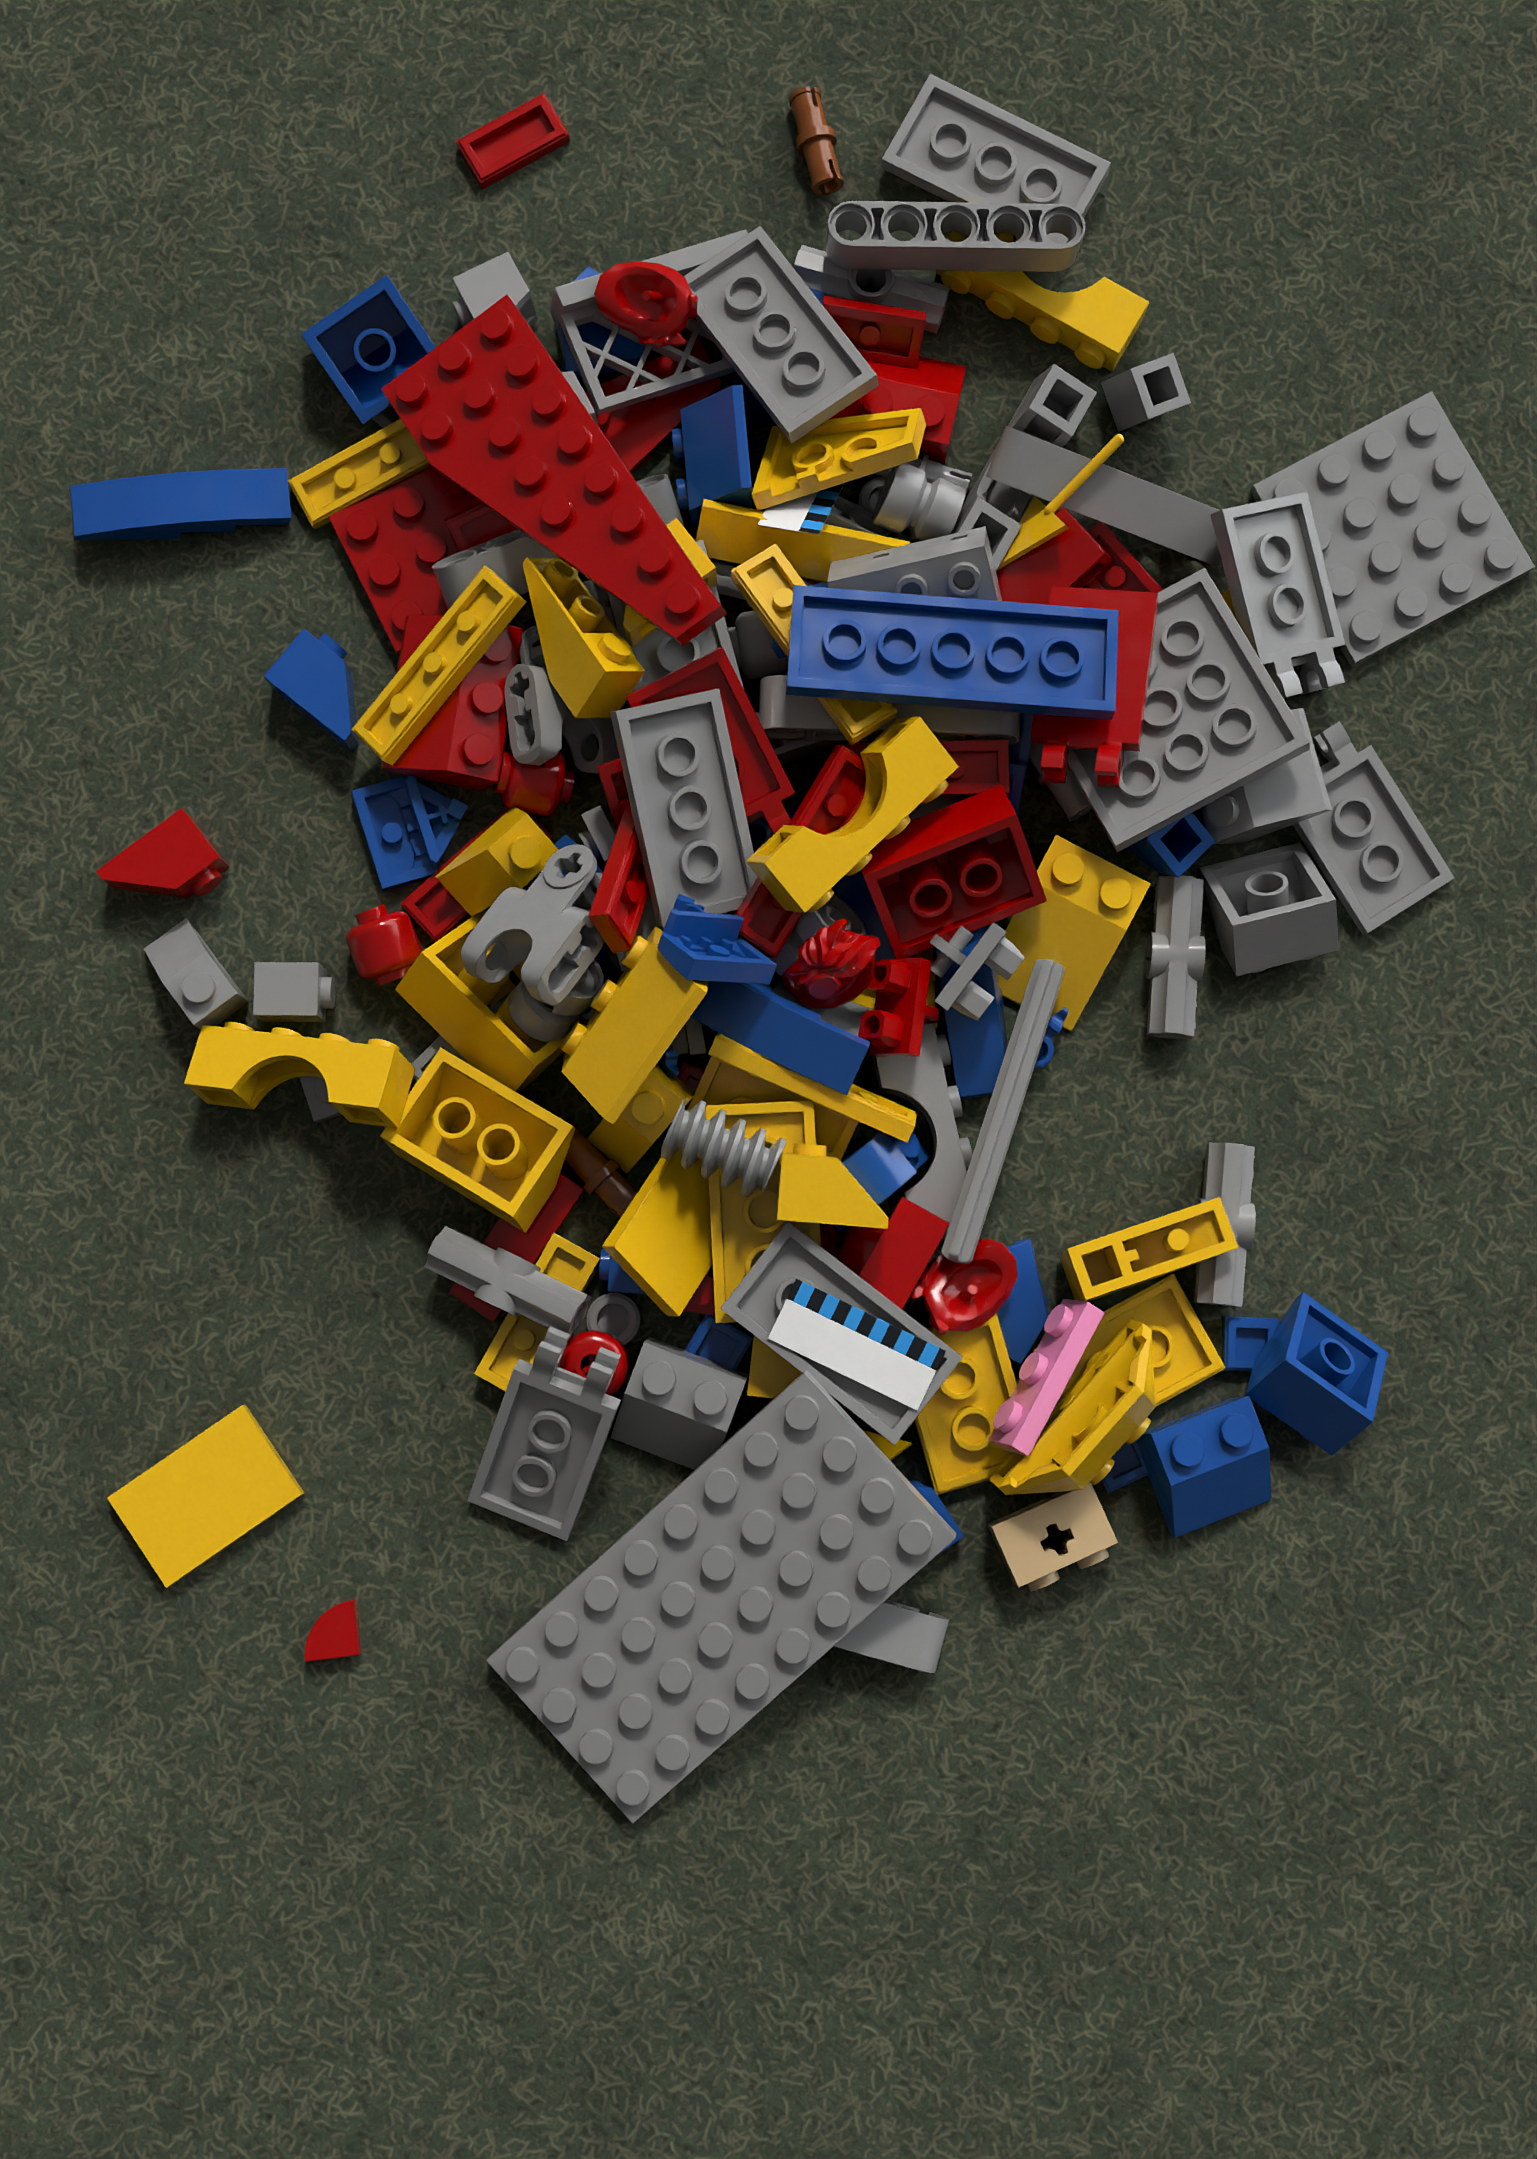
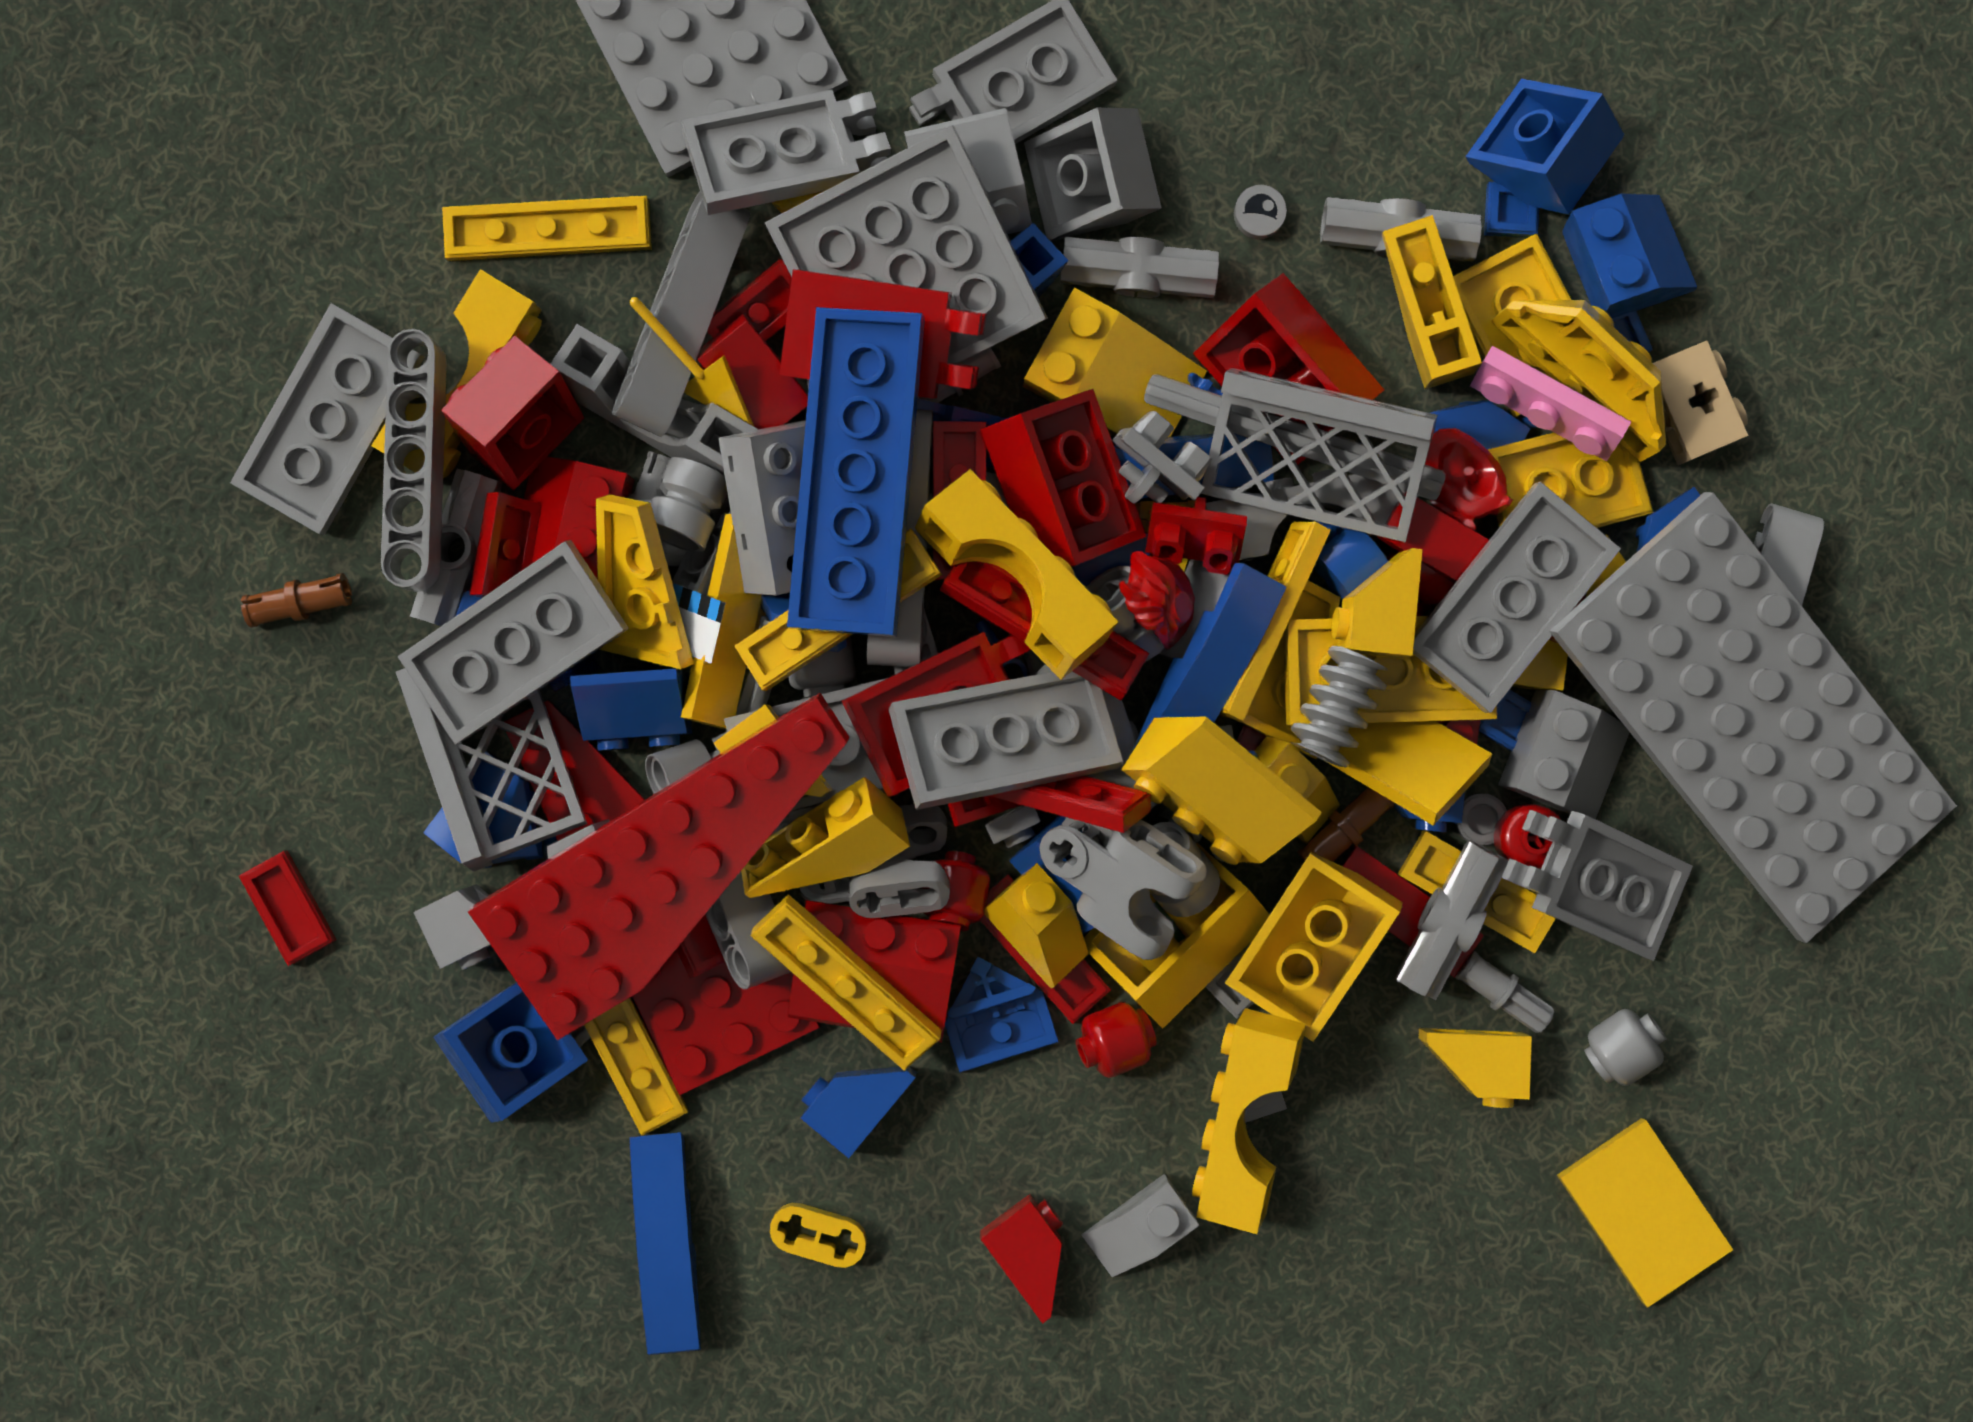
camera: 85 degrees left, 5 degrees up
(176, 652) = (814, 1247): none -> yellow beam
(292, 992) = (1161, 1129): light grey brick -> none
(335, 1633) = (1776, 1087): red tile -> none
(361, 1320) = (1485, 1062): none -> yellow slope
(376, 1470) = (1625, 1047): none -> light grey head
(433, 1346) = (1505, 993): none -> light grey axle
(647, 301) = (476, 770): red hat -> none
(708, 947) = (1152, 717): blue slope -> none
(856, 1344) = (1527, 582): white sticker -> none
(1005, 332) = (513, 412): none -> red brick
(1032, 1135) = (1328, 409): none -> light grey fence
(1082, 1111) = (1288, 340): none -> red slope
(1145, 392) = (572, 275): light grey brick -> none
(1193, 338) = (546, 228): none -> yellow tile
(1237, 1082) = (1260, 212): none -> light grey tile

